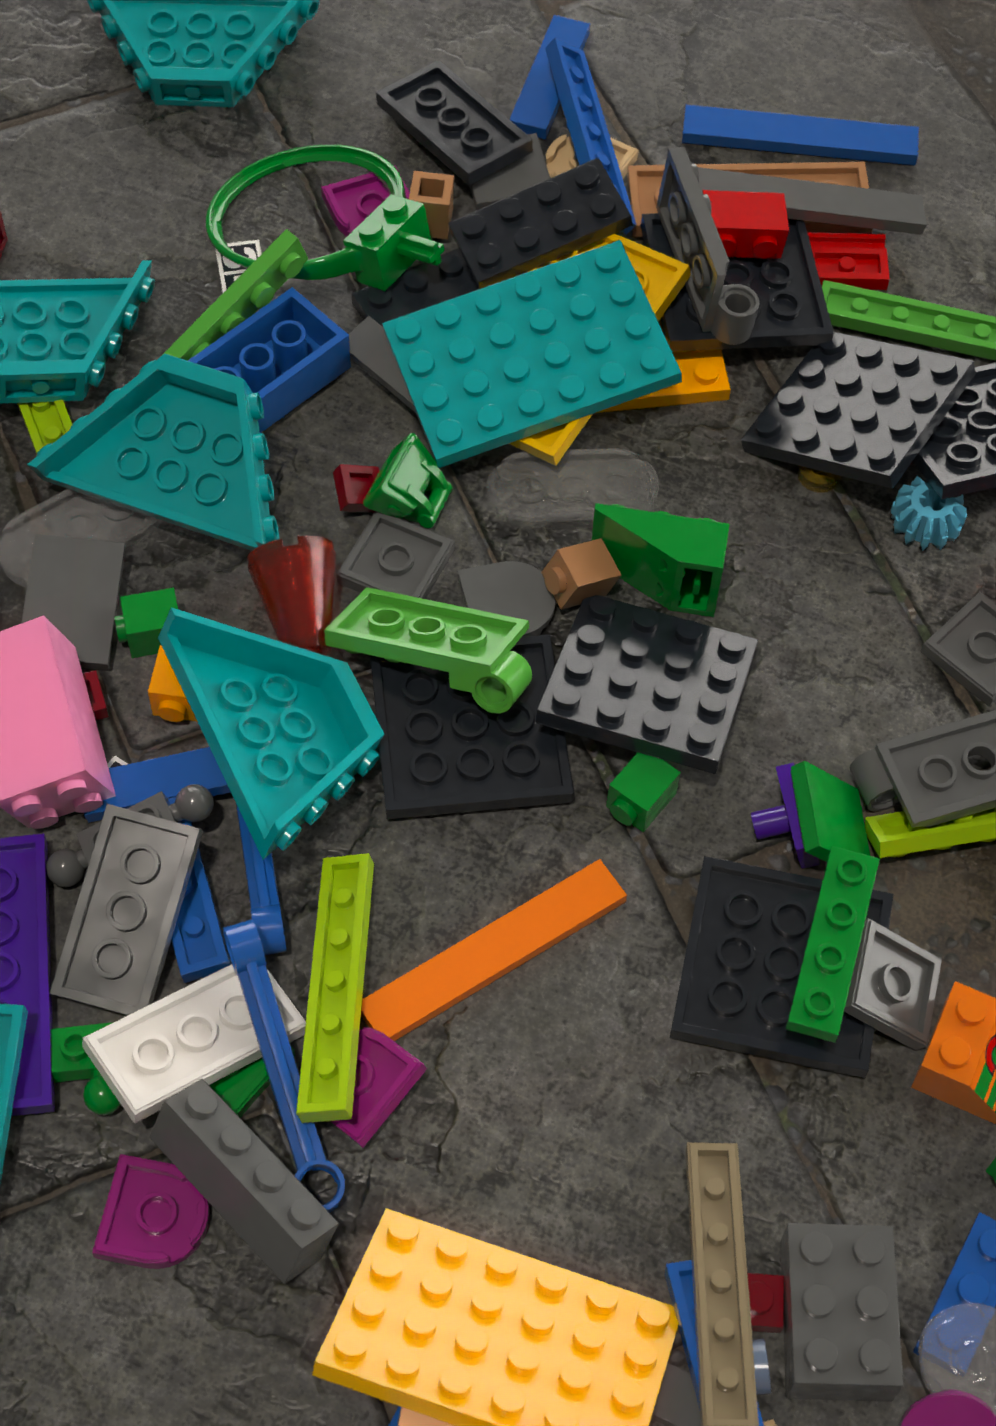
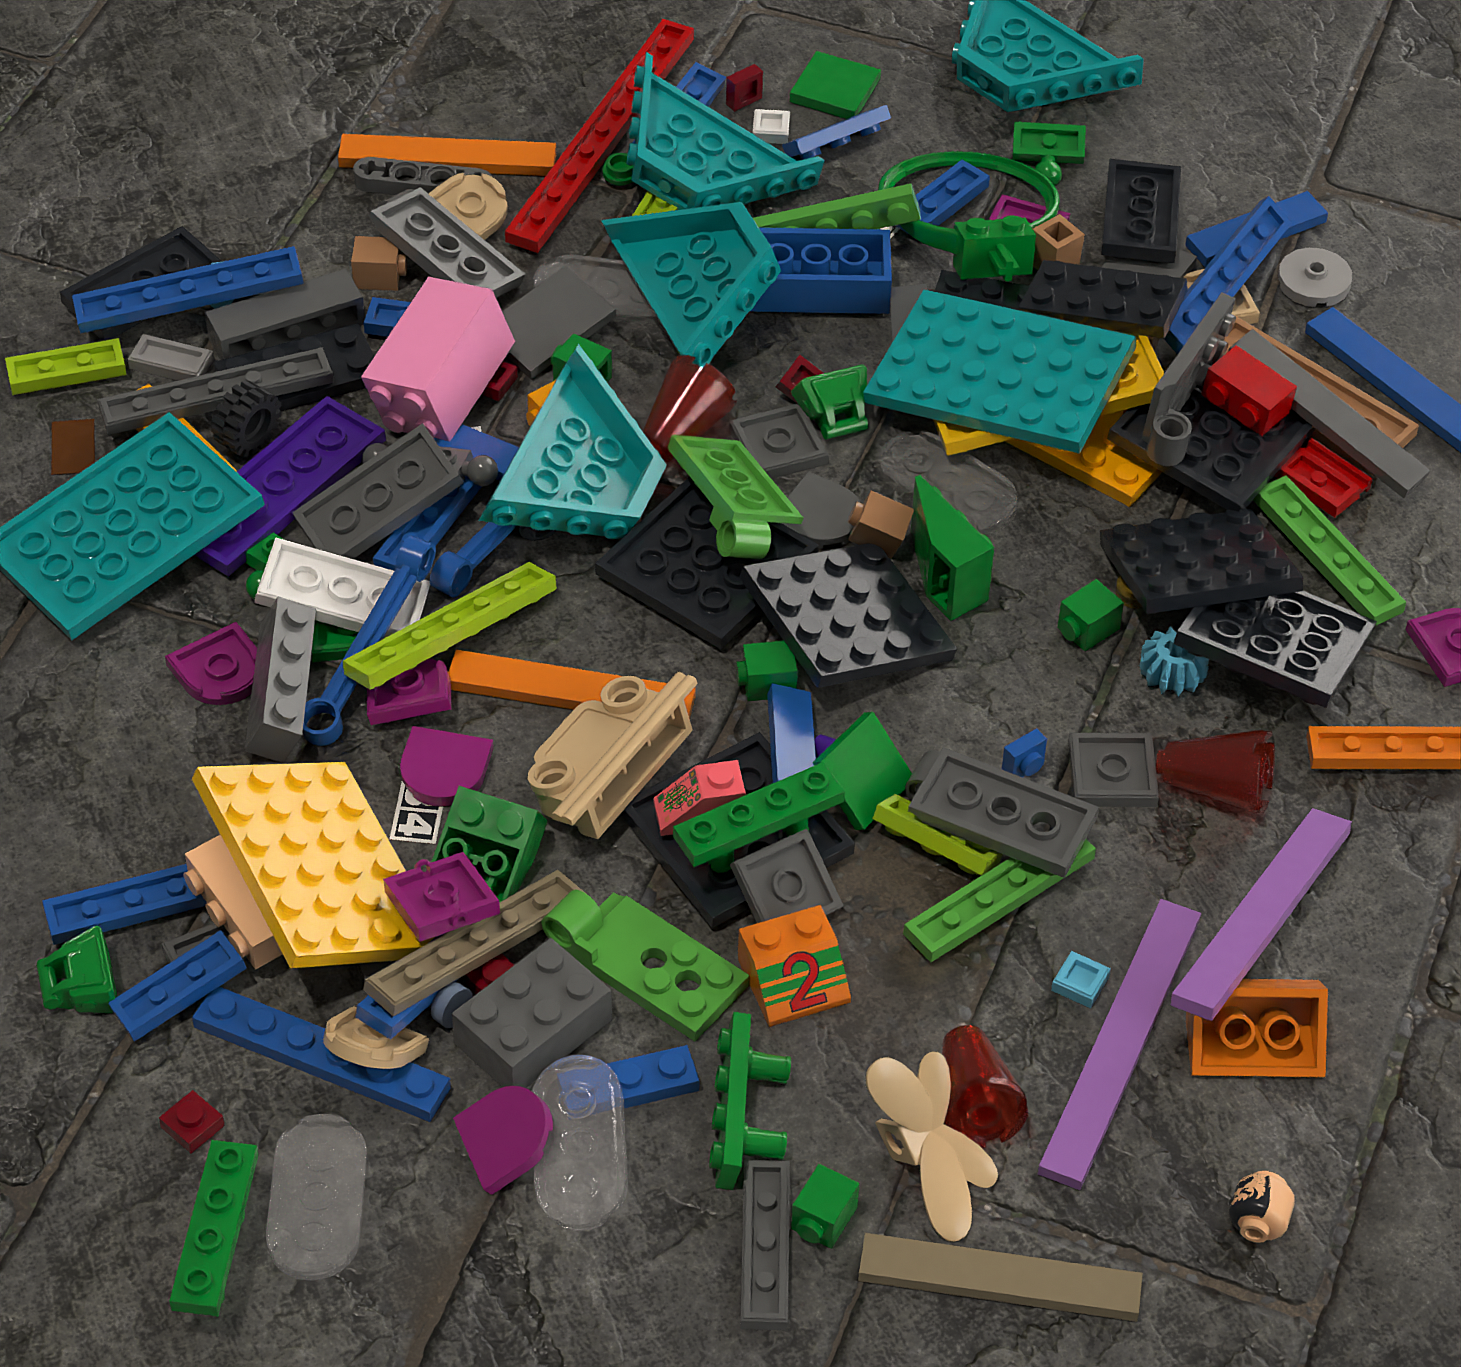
camera: 45 degrees right, 10 degrees down
(50, 259) = (771, 125): none -> white tile
(63, 182) = (835, 85): none -> green tile
(120, 226) = (838, 133): none -> plate
(276, 209) = (950, 192): none -> blue plate
(311, 113) = (1049, 146): none -> green plate
(472, 1129) = (441, 761): none -> magenta tile
(495, 1193) = (414, 819): none -> white sticker
(615, 993) = (609, 751): none -> tan brick
(618, 1195) = (494, 836): none -> green slope
(639, 88) = (1315, 277): none -> light grey plate
(658, 1274) = (441, 897): none -> magenta plate
(745, 845) = (790, 731): none -> blue tile
(750, 967) = (698, 792): none -> coral slope
(805, 1169) = (623, 934): none -> bright green hinge
(824, 523) = (1090, 615): none -> green brick
(922, 695) = (1025, 754): none -> blue plate

